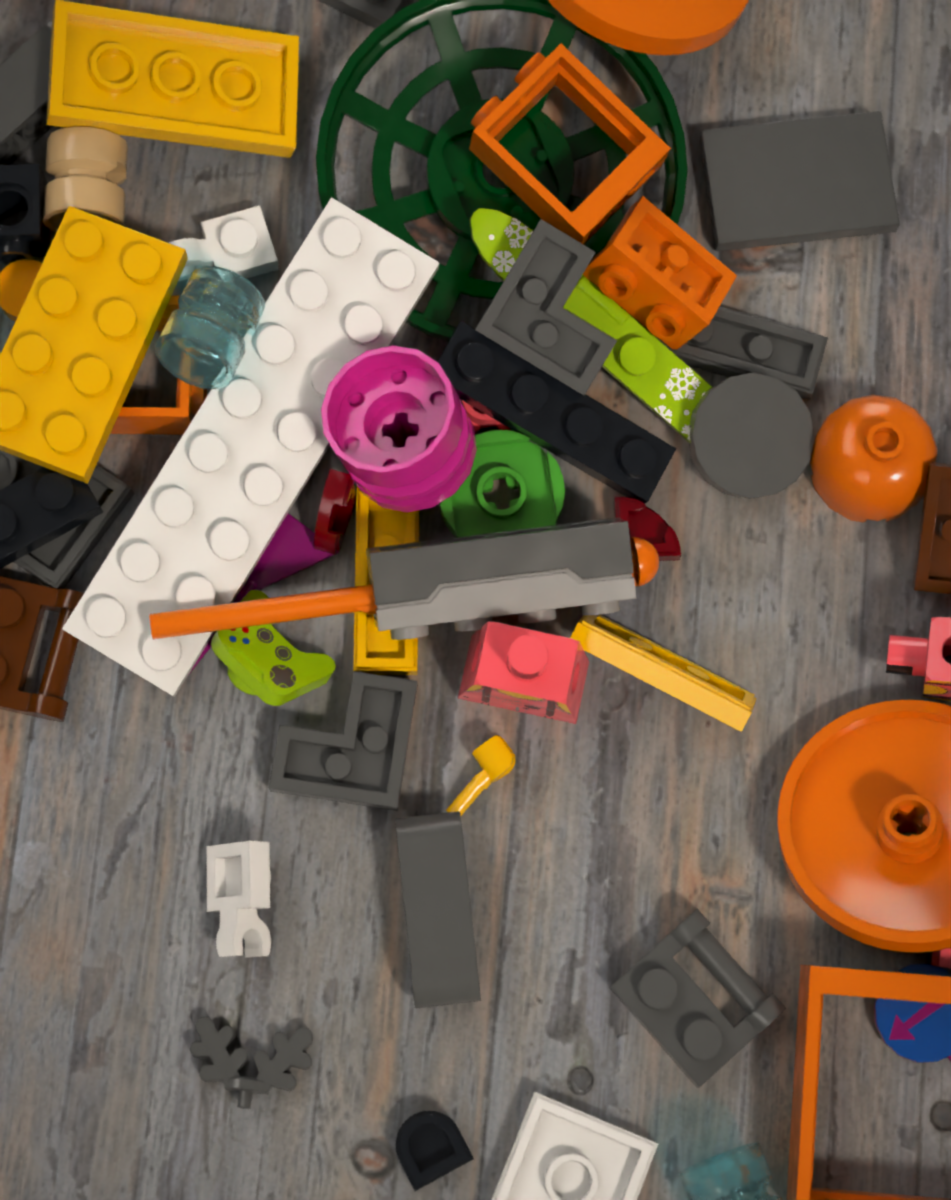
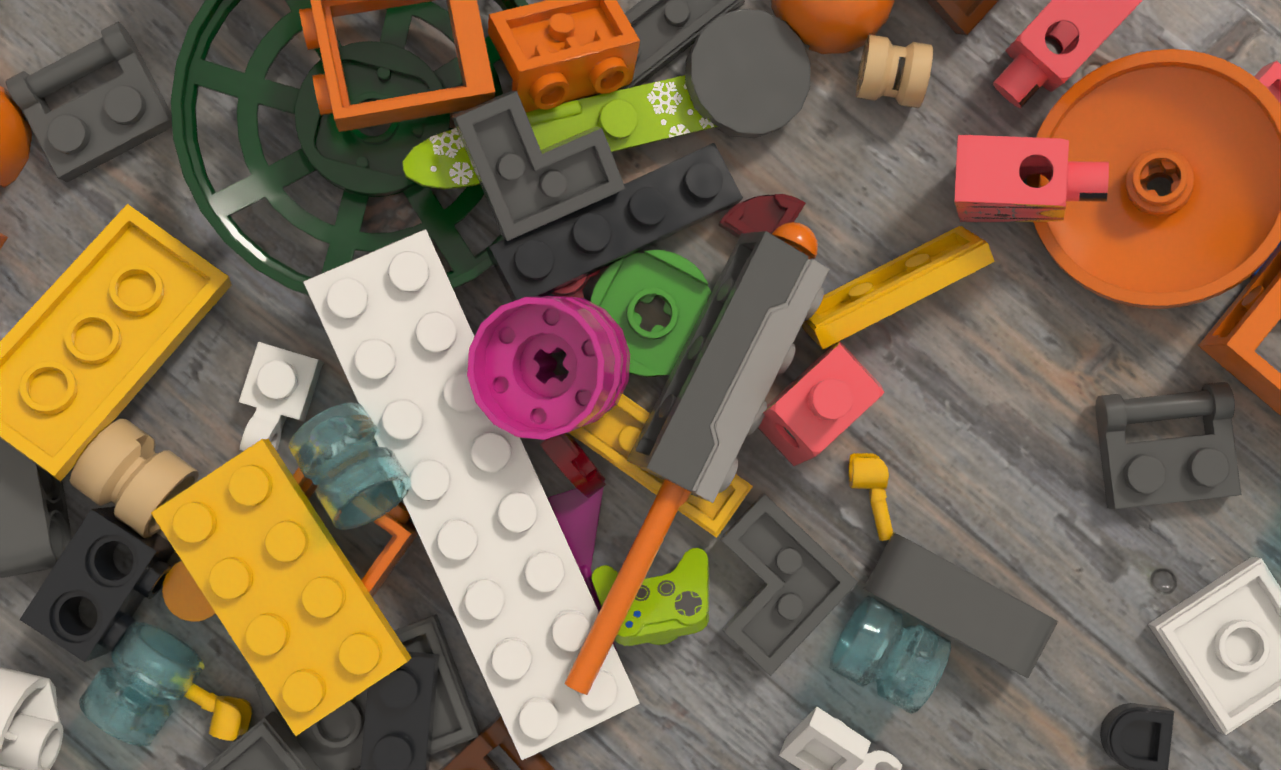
camera: 50 degrees left, 10 degrees up
(354, 873) = (898, 658): none -> clear light blue wheel
(819, 699) = (993, 173): none -> coral torso
(834, 539) = (880, 66): none -> tan wheel

